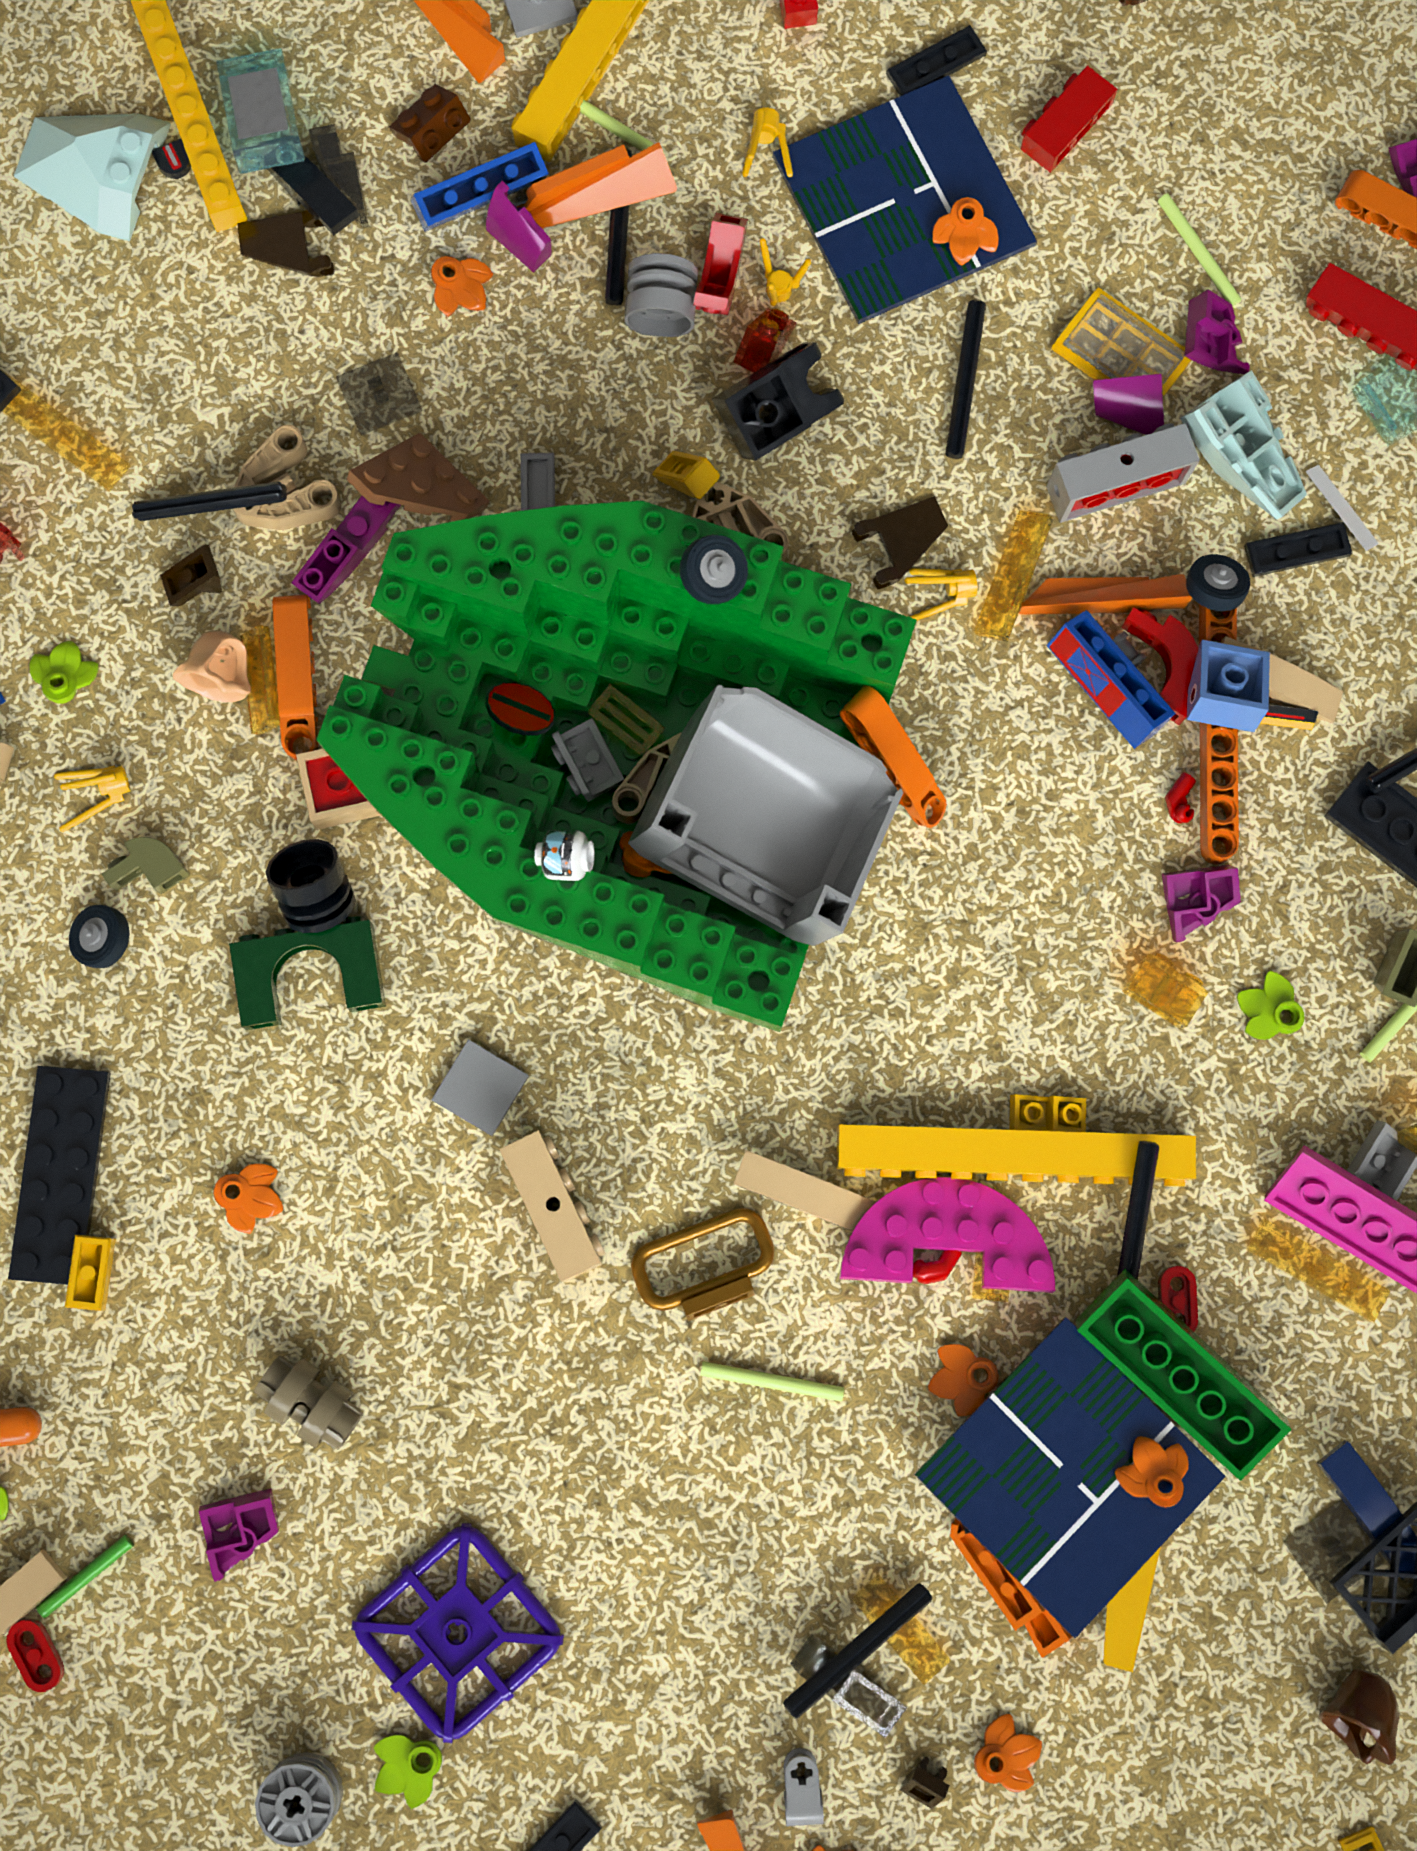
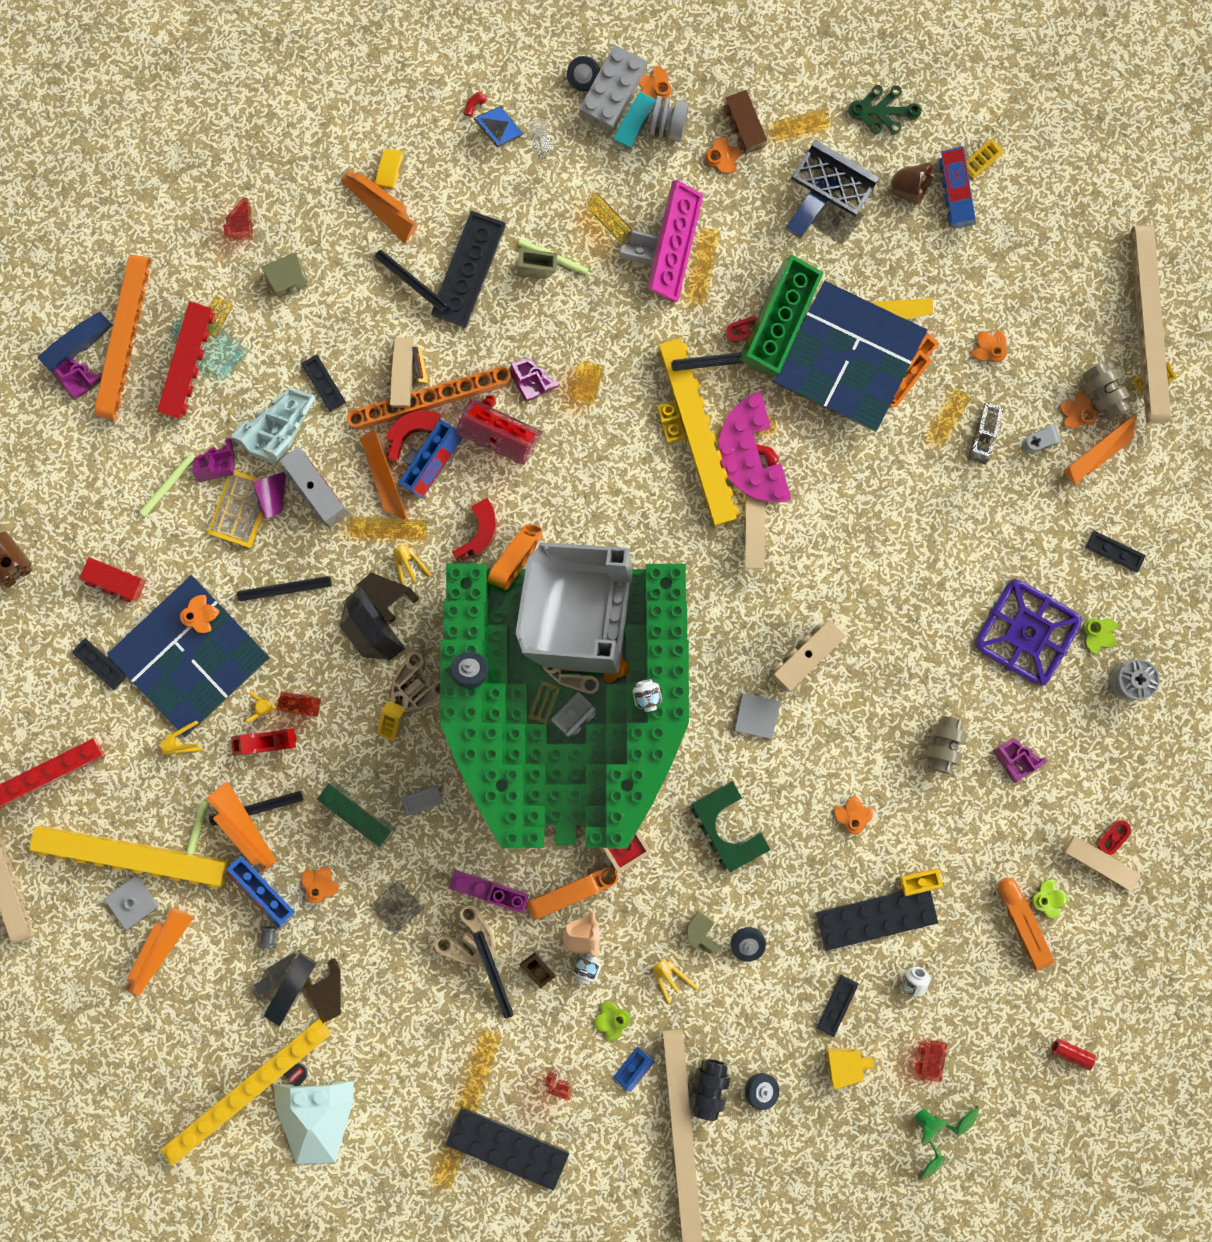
camera: 105 degrees left, 5 degrees up
(83, 1577) = (1067, 827): bright green bar -> none
(160, 656) = (586, 969): none -> head
(260, 111) = (254, 1033): panel -> none
(261, 677) = (592, 904): clear yellow tile -> none
(310, 886) = (685, 839): black wheel -> none
(403, 179) = (268, 937): none -> dark grey bush
(419, 480) = (443, 864): medium nougat plate -> none
(431, 121) = (227, 936): reddish brown bracket -> none
(517, 230) = (279, 862): magenta slope -> none
(520, 708) = (562, 756): red piece -> none
(580, 341) = (339, 802): none -> dark green arch
(661, 295) = (289, 769): light grey wheel -> none
(715, 1292) = (818, 559): pearl gold bar -> none
(772, 1381) = (852, 518): yellowish green bar -> none
(786, 400) = (335, 685): black brick -> none
(853, 491) = (368, 628): none -> black wedge
(857, 1651) = (969, 432): black axle -> none
(924, 1786) = (1019, 382): dark brown tile -> none
(952, 731) = (486, 531): none -> red arch
(957, 1378) = (818, 427): orange plate -> none
(1122, 804) = (498, 432): none -> clear pink brick
(1152, 1467) = (832, 316): orange plate -> none
(1218, 582) = (362, 417): black wheel -> none
(1229, 686) = (418, 395): medium blue slope -> none
(1267, 1004) = (577, 329): lime plate -> none
(1330, 1802) = (958, 188): none -> blue brick
(1342, 507) = (292, 366): white sticker -> none

